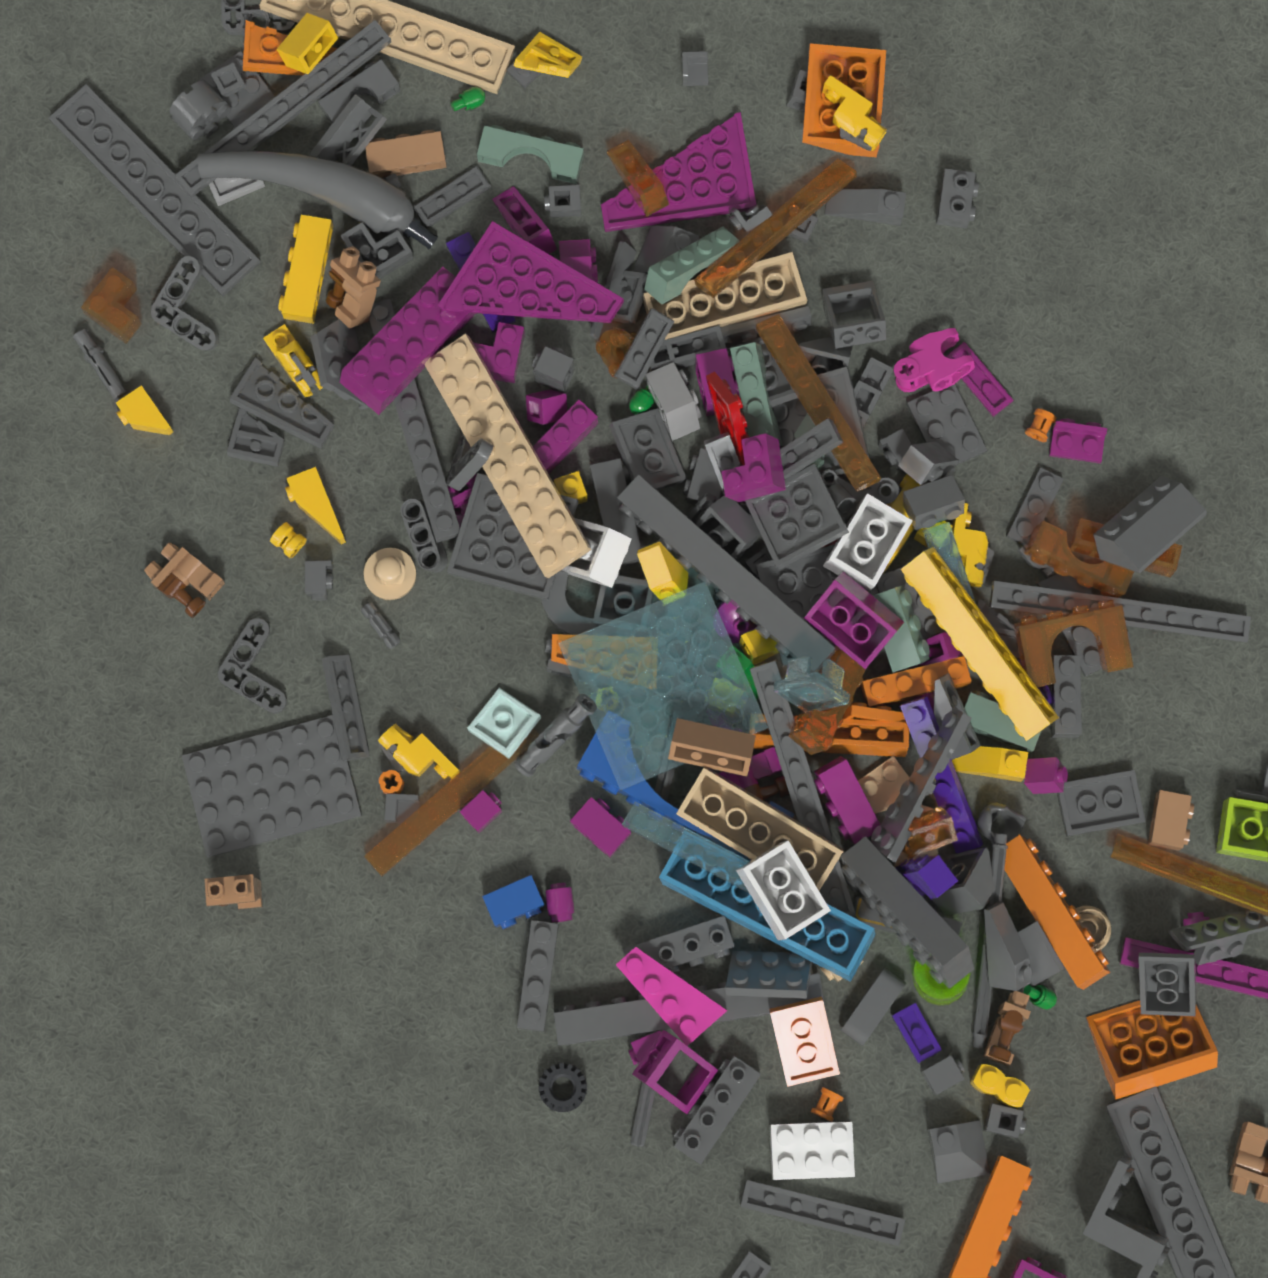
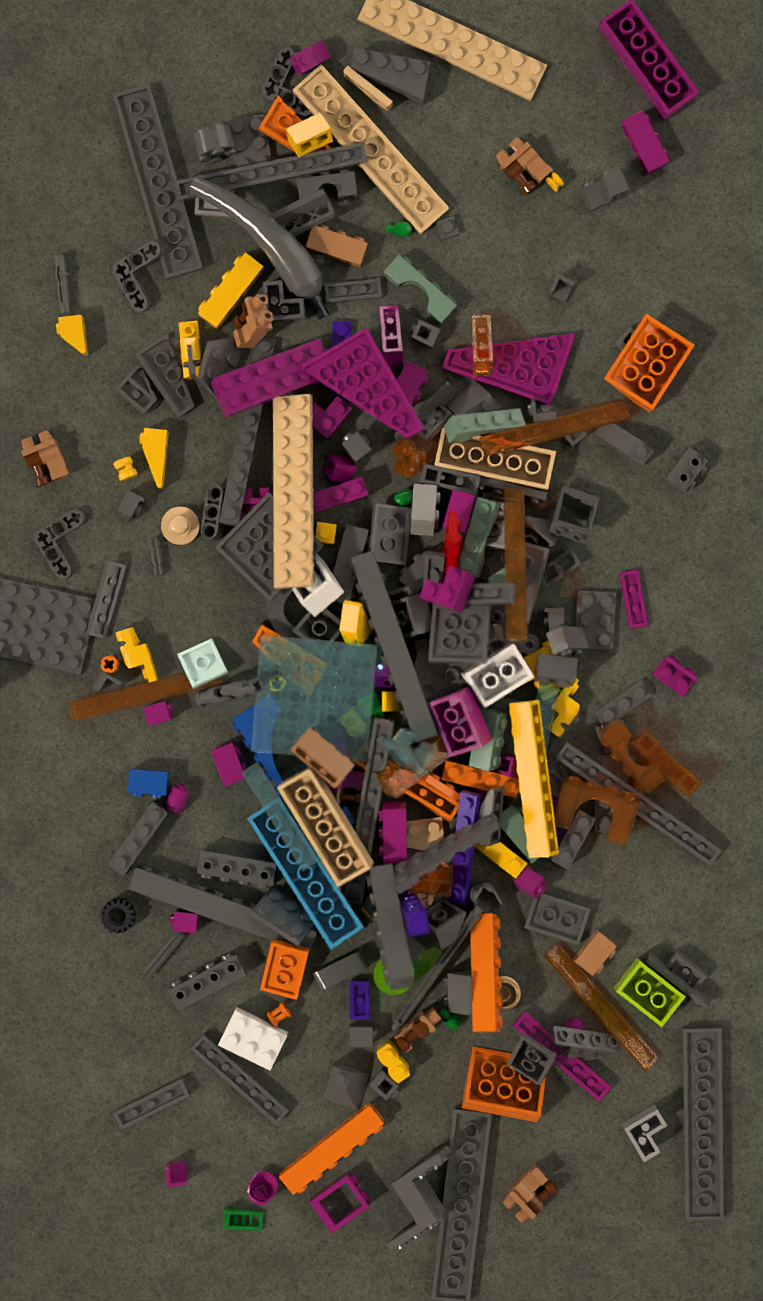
camera: 30 degrees right, 10 degrees up
(107, 306) = (87, 245): clear orange brick -> none
(228, 80) = (244, 132): dark grey plate -> none
(467, 461) = (265, 482): dark grey beam -> none
(548, 57) = (467, 228): yellow wing -> none
(644, 348) = (422, 466): dark grey tile -> none
(651, 1070) = (194, 929): magenta window -> none
(676, 1001) = (216, 903): dark pink wing -> none
(783, 890) = (317, 875): white brick -> none
(853, 115) = (645, 381): yellow plate -> none
(929, 364) = (605, 573): dark pink piece -> none
(1006, 954) = (442, 982): dark grey slope -> none
(1041, 425) = (657, 652): orange bush -> none
(1148, 525) = (688, 759): dark grey slope -> none

